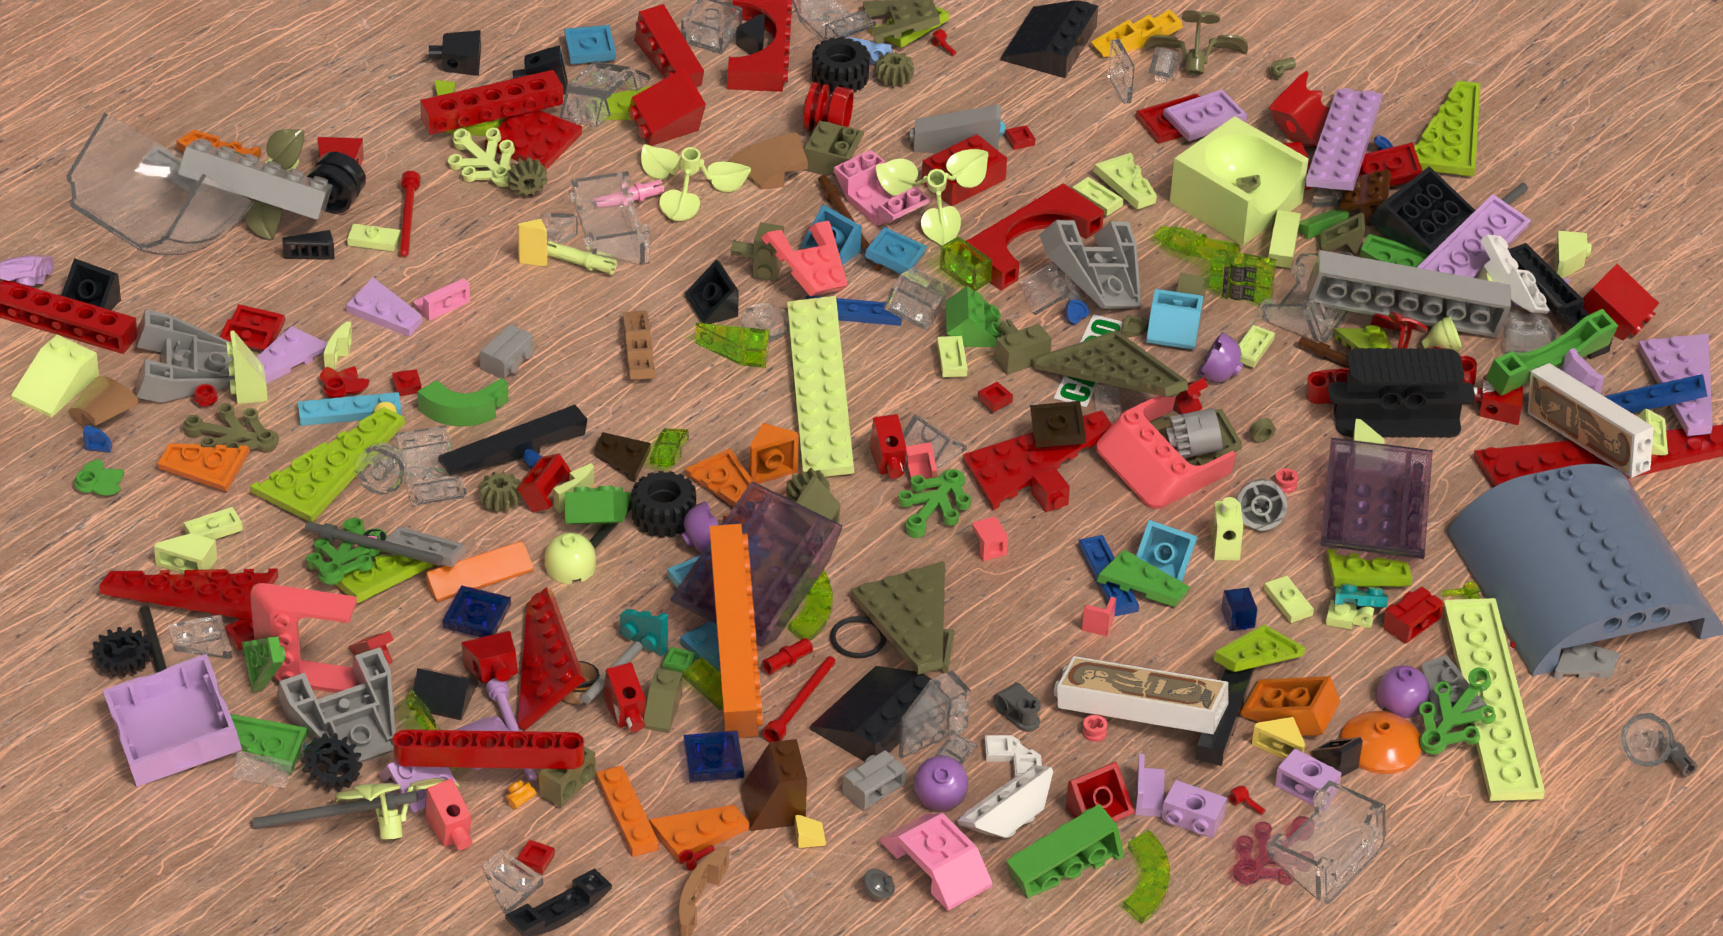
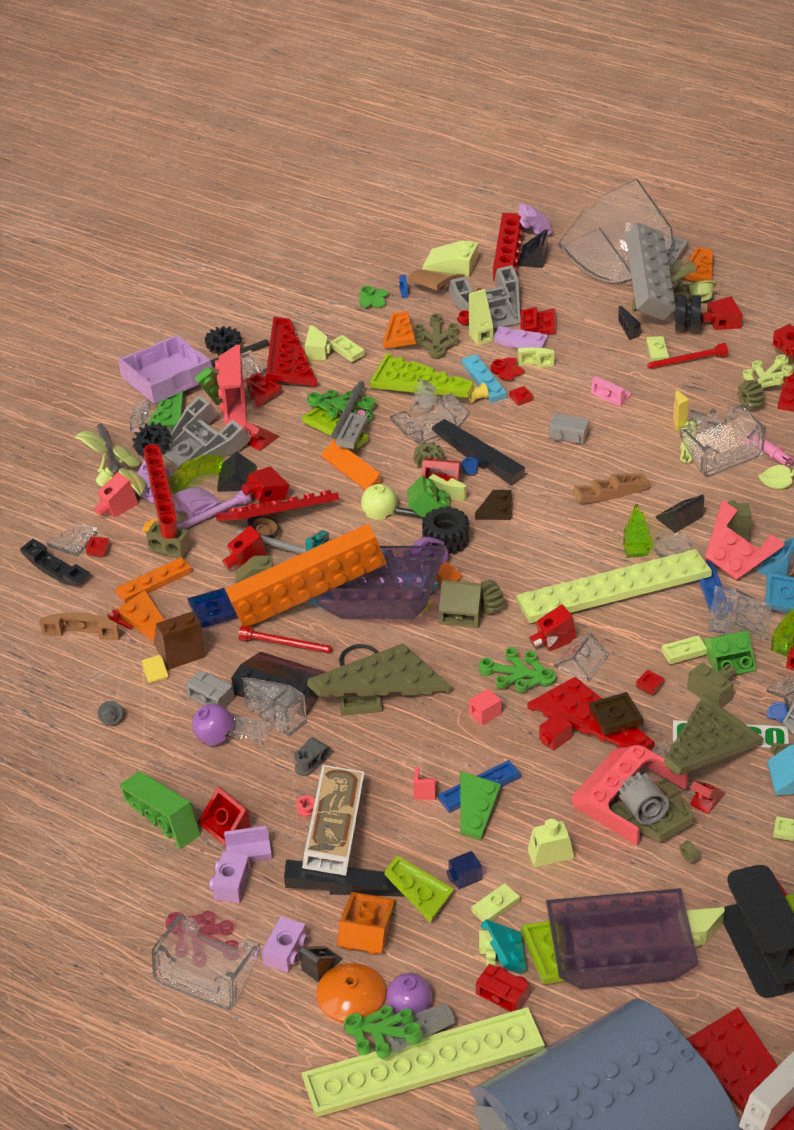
camera: 80 degrees right, 0 degrees up
(384, 308) = (587, 368): lavender wing -> none
(462, 408) = (503, 424): bright green arch -> none
(476, 612) = (311, 472): clear blue plate -> none
(668, 447) = (504, 522): clear neon green slope -> none
(721, 475) = (490, 559): orange wing -> none
(773, 453) = (512, 567): orange slope -> none
(787, 656) = (322, 624): red pin -> none
(816, 610) = (375, 633): clear neon green tile -> none
(921, 460) = (551, 654): coral panel -> none
(944, 855) = (135, 734): bright pink slope -> none
(1008, 749) = (261, 773): white tile -> none
(1010, 804) = (194, 764): white wedge -> none
(1154, 879) = (158, 868): clear neon green tile -> none
(1167, 549) = (513, 809): medium azure slope -> none
(1222, 360) = (759, 807): medium lavender cylinder -> none
(1241, 794) = (258, 906): red hand -> none
(1262, 504) = (589, 860): light grey cylinder -> none
(1278, 737) = (324, 922): light yellow slope -> none
(1291, 477) = (639, 874): coral bush -> none
(1470, 589) = (553, 1029): clear neon green hand -> none

